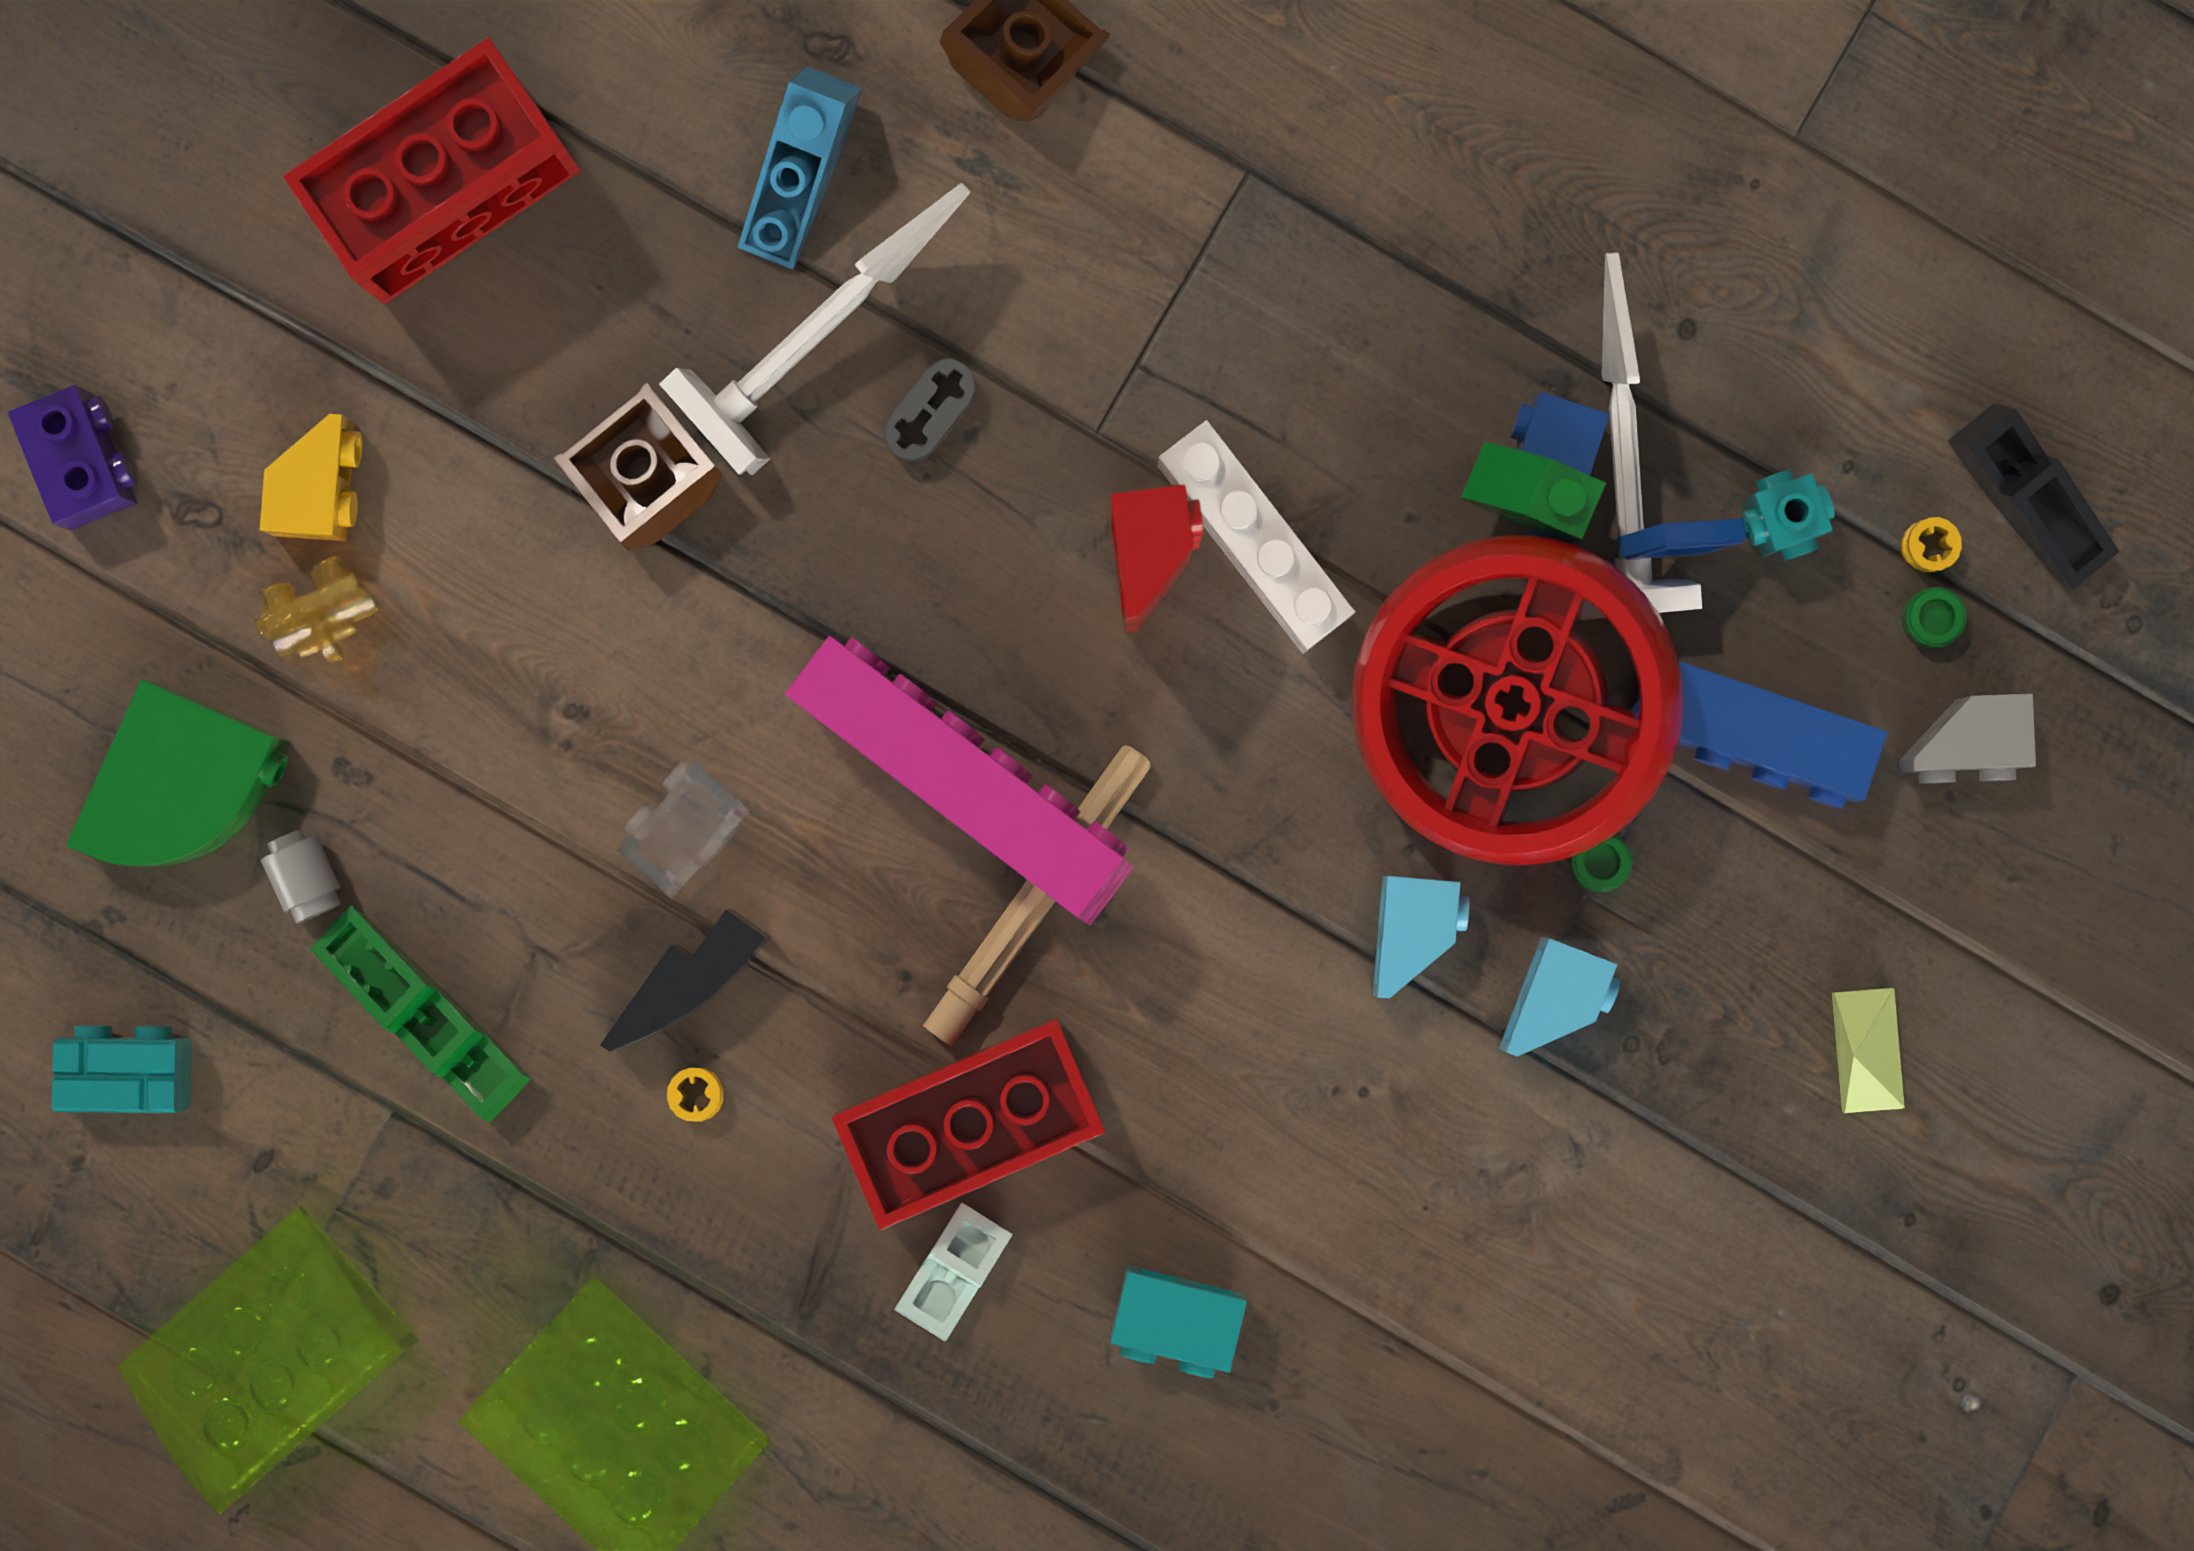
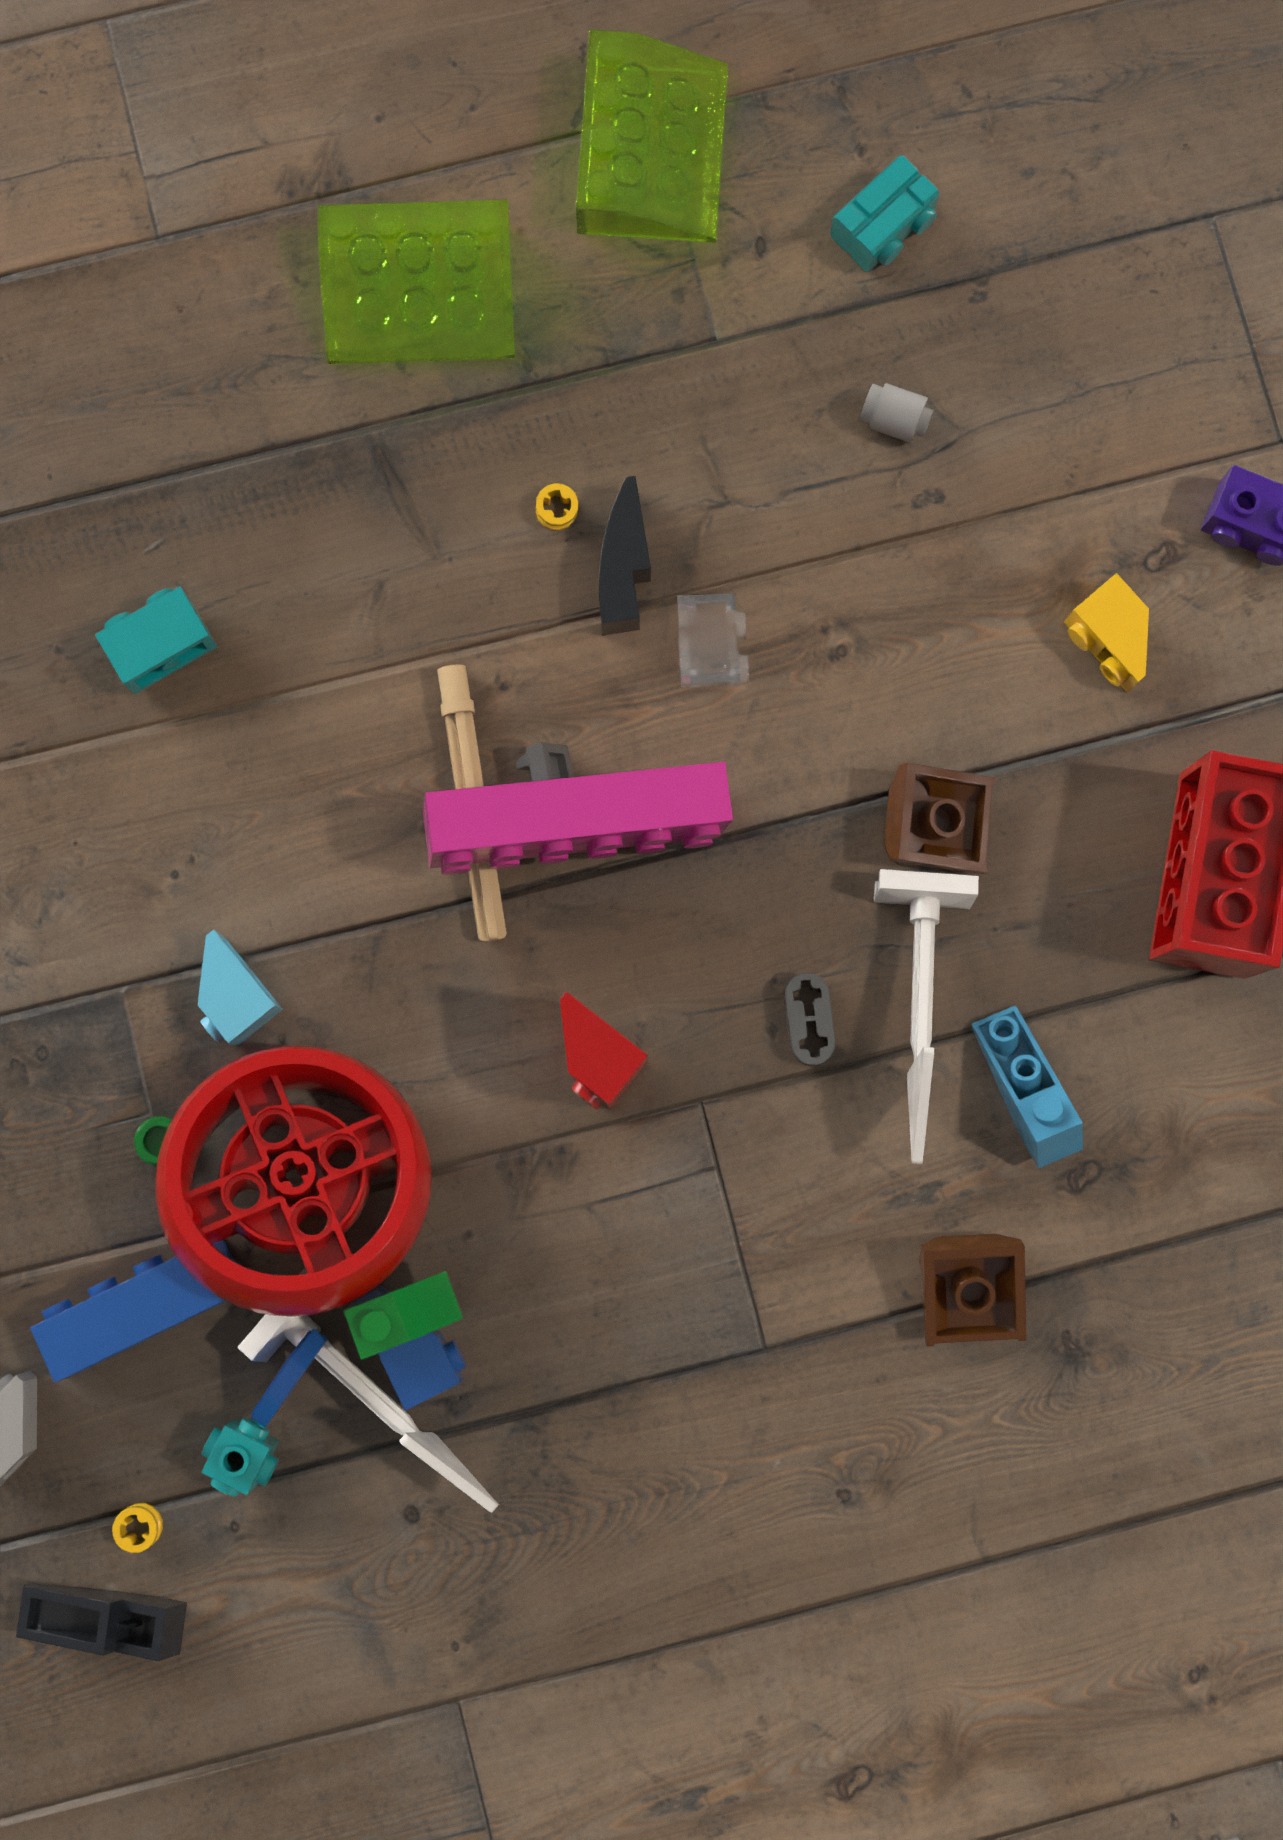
camera: 135 degrees right, 5 degrees down
(175, 781) = (1020, 397): green brick -> none
(317, 618) = (1032, 559): clear yellow hips -> none
(420, 1013) = (754, 403): green slope -> none
(941, 854) = (546, 761): none -> dark grey tile
(953, 1272) = (313, 548): light aqua slope -> none
(968, 1123) = (383, 633): red brick -> none
(1256, 537) = (545, 1129): white brick -> none
(1559, 996) = (108, 1035): medium azure slope -> none
(1933, 617) = (95, 1484): green tile -> none

